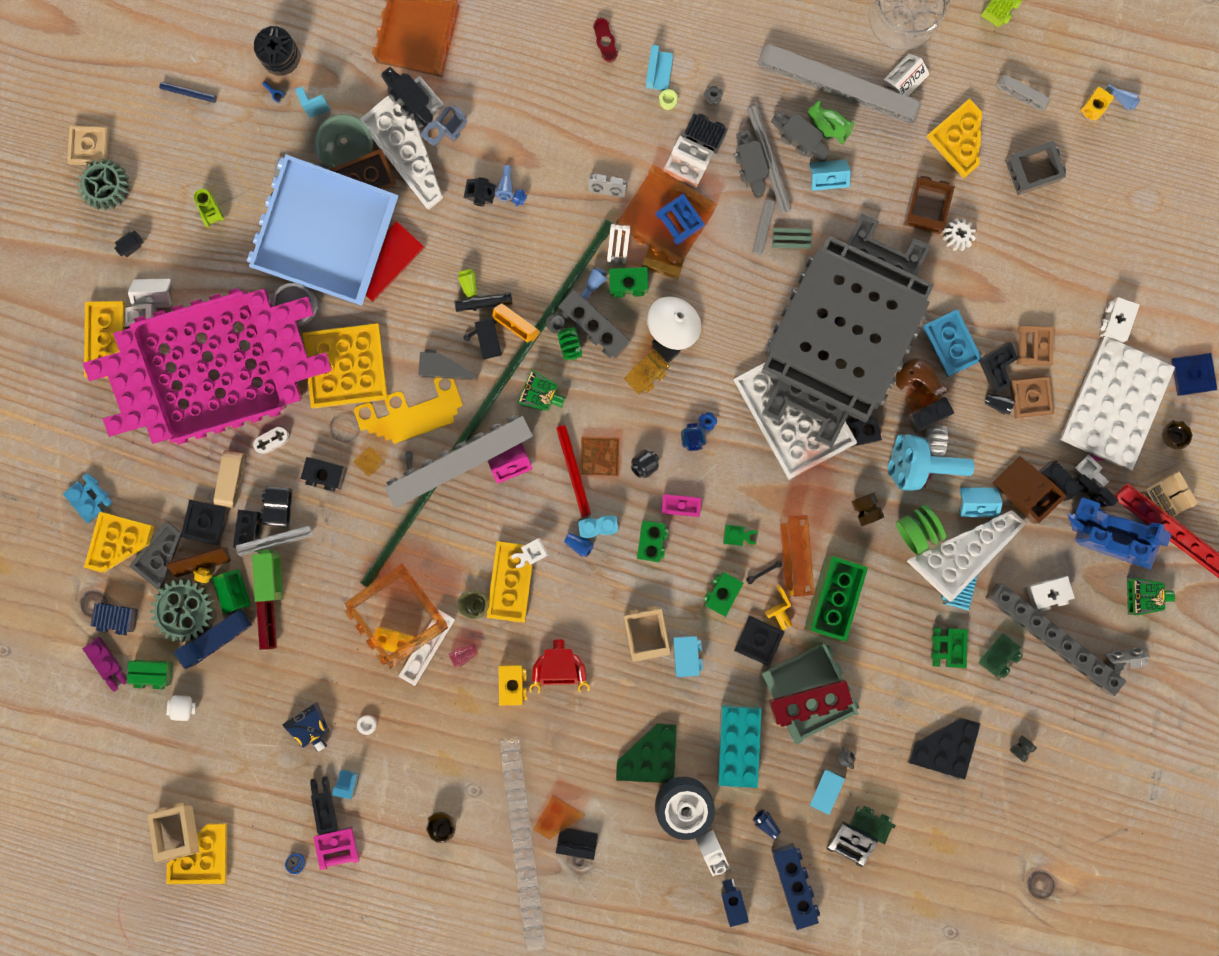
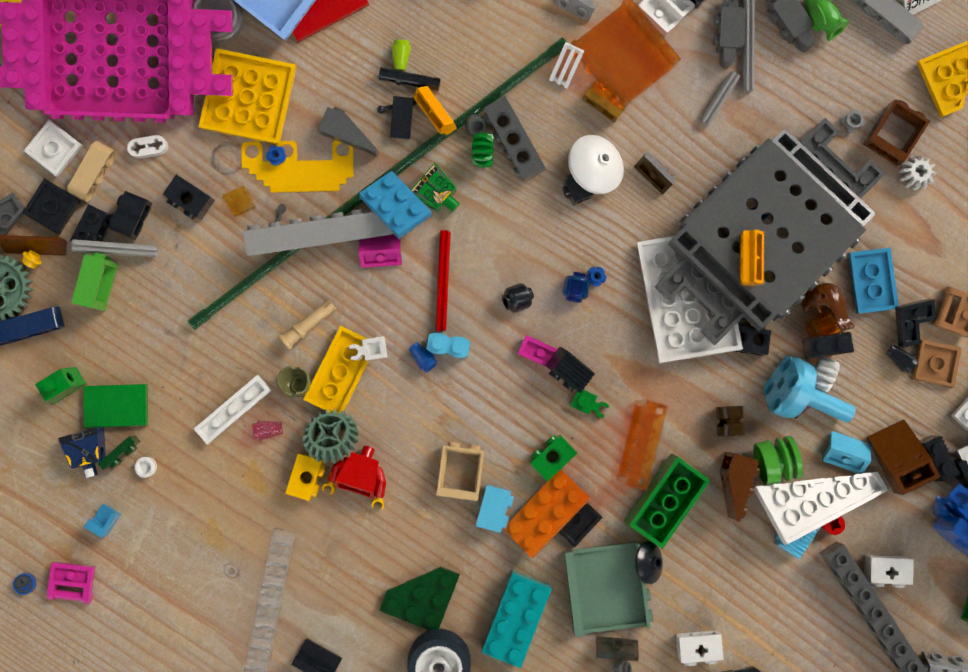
camera: 15 degrees right, 0 degrees up
(187, 470) = (53, 148): none -> white plate
(231, 591) = (55, 285): green panel -> none
(263, 625) = (74, 330): dark red piece -> none
(267, 678) = (58, 386): none -> green torso
(321, 679) = (116, 405): none -> green tile
(323, 807) = (72, 536): black hinge -> none
(337, 725) = (127, 447): none -> dark green plate
(388, 414) = (276, 150): none -> blue plate
(391, 639) = (201, 391): yellow brick -> none
(417, 642) = (216, 402): clear orange window -> none
(441, 827) = (184, 597): dark brown hair -> none
(462, 557) = (299, 330): none -> tan pin
(509, 418) = (395, 204): none -> dark azure plate
(521, 652) = (329, 447): none -> sand green gear
(557, 817) = (305, 628): clear orange wing -> none
(596, 278) = (530, 95): medium blue cone -> none
(599, 456) = (474, 275): clear orange tile -> none
(637, 275) = (575, 104): green brick -> none
(638, 376) = (541, 209): clear yellow brick -> none
(645, 541) = (493, 377): green brick -> none
(685, 215) = (644, 59): blue plate -> none
(712, 512) = (569, 369): none -> black brick
(728, 312) = (655, 173): none -> dark brown plate
(734, 645) = (546, 513): none -> orange plate
(750, 579) = (586, 452): black hinge -> none
(779, 610) = (604, 494): yellow bracket -> none
(807, 238) = (747, 112): sand green tile -> none
(829, 174) = (805, 68): medium azure panel -> none
(836, 742) = (617, 648): none -> clear smoke plate
(838, 361) = (751, 258): none -> light orange piece
(838, 657) = (649, 562): none -> black dish
(838, 689) = (572, 591): dark red brick -> none
(886, 201) = (858, 120): none -> light grey plate
(890, 558) = (737, 479): none -> reddish brown slope
(915, 708) = (710, 653): none -> white brick
(955, 647) = (772, 594): green plate -> none
(994, 570) = (839, 526): none -> red wheel
(1001, 657) = (816, 618): clear green bracket -> none

